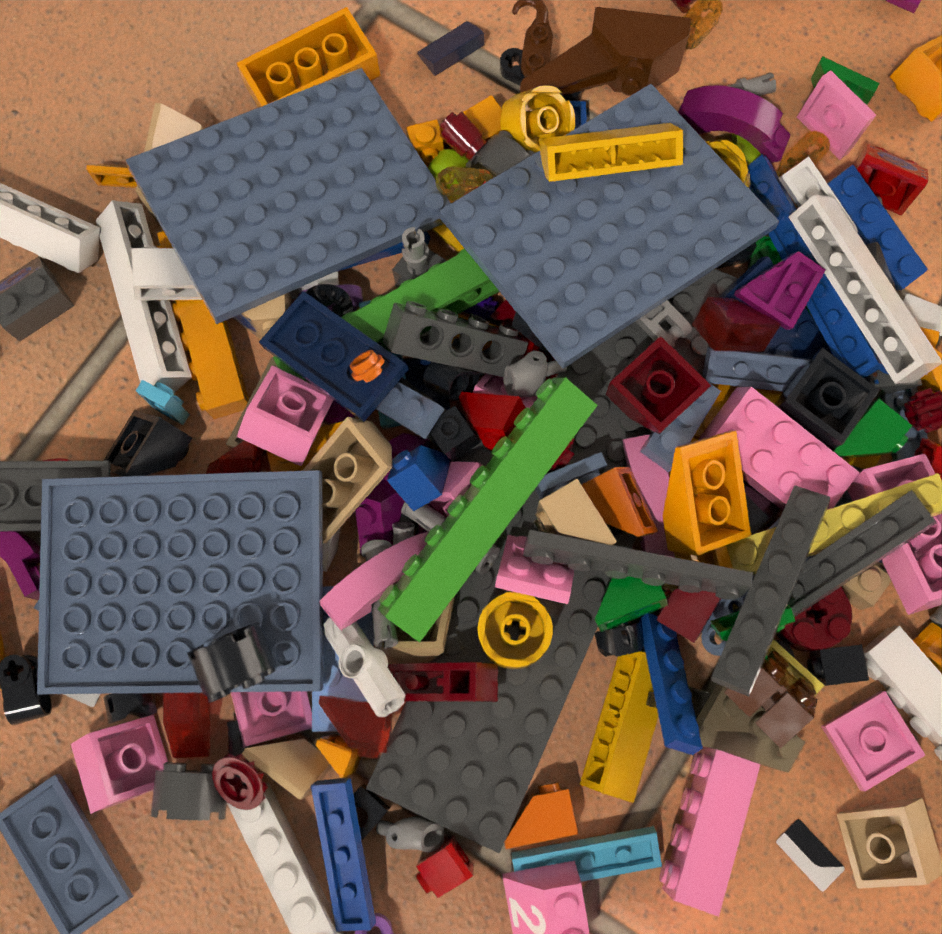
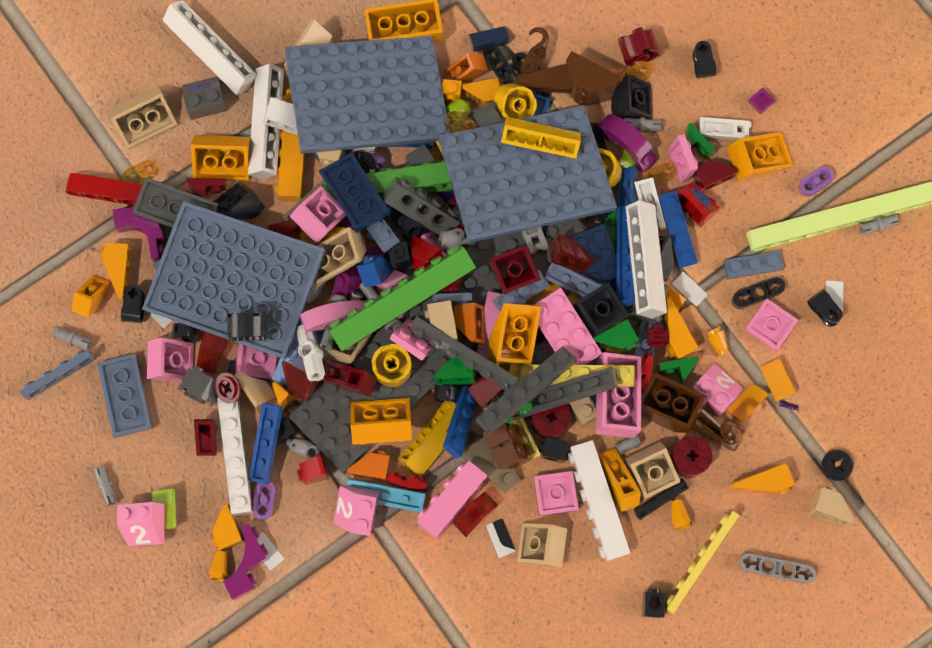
camera: 15 degrees right, 0 degrees up
(74, 441) = (201, 186): none -> dark red slope
(86, 383) = (220, 157): none -> light orange slope
(111, 175) = (274, 44): light orange slope -> none
(163, 400) = (257, 182): medium azure plate -> none
(232, 880) = (205, 437): none -> dark red slope
(366, 366) = (368, 205): orange plate -> none
(415, 251) = (419, 152): light grey pin -> none
(435, 98) = (466, 68): none -> orange slope
(462, 135) = (471, 95): dark red brick -> none
(480, 66) = (506, 67): none -> black beam
(534, 737) = (381, 421): none -> light orange slope
(625, 820) = (414, 483): none -> red slope
(712, 56) = (632, 99): none -> black slope
(761, 832) = (475, 514): none -> clear red slope
(783, 289) = (603, 244): magenta wing -> none
(873, 50) = (724, 128): none -> white plate
(891, 123) = (713, 174): none -> dark red slope

